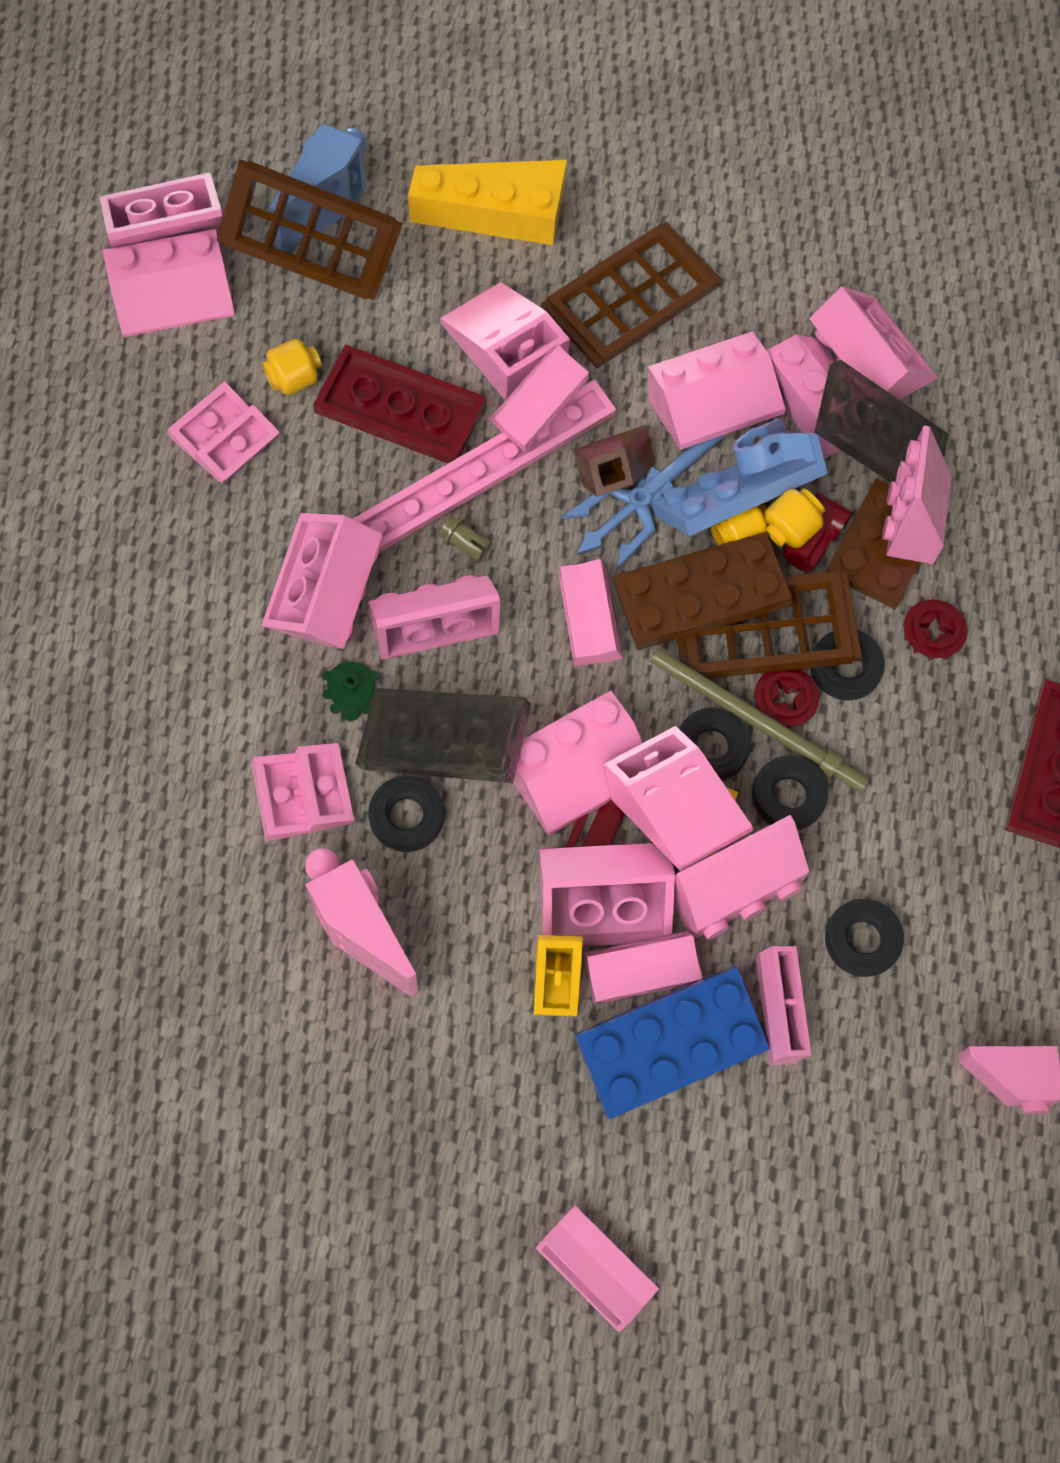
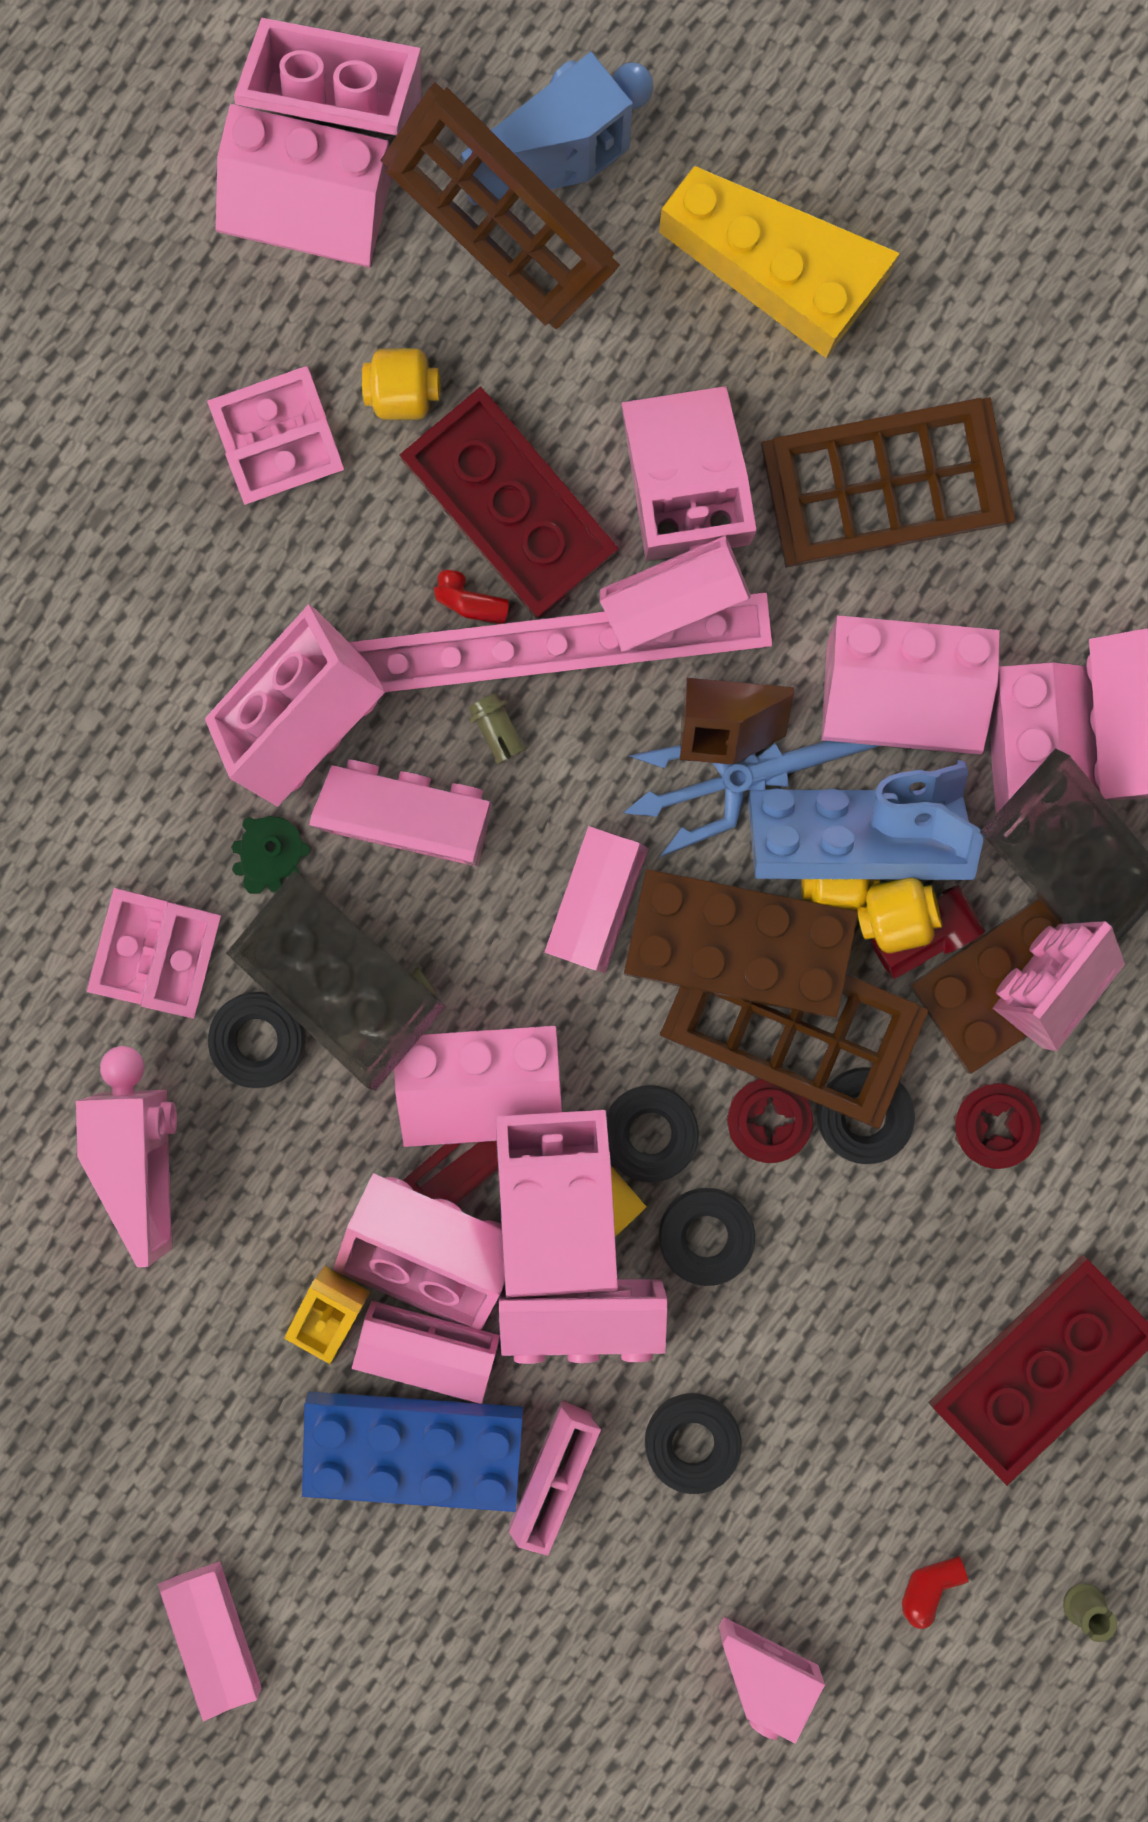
camera: 30 degrees right, 20 degrees up
(393, 474) = (466, 603): none -> red arm
(828, 762) = (769, 1221): olive bar -> none

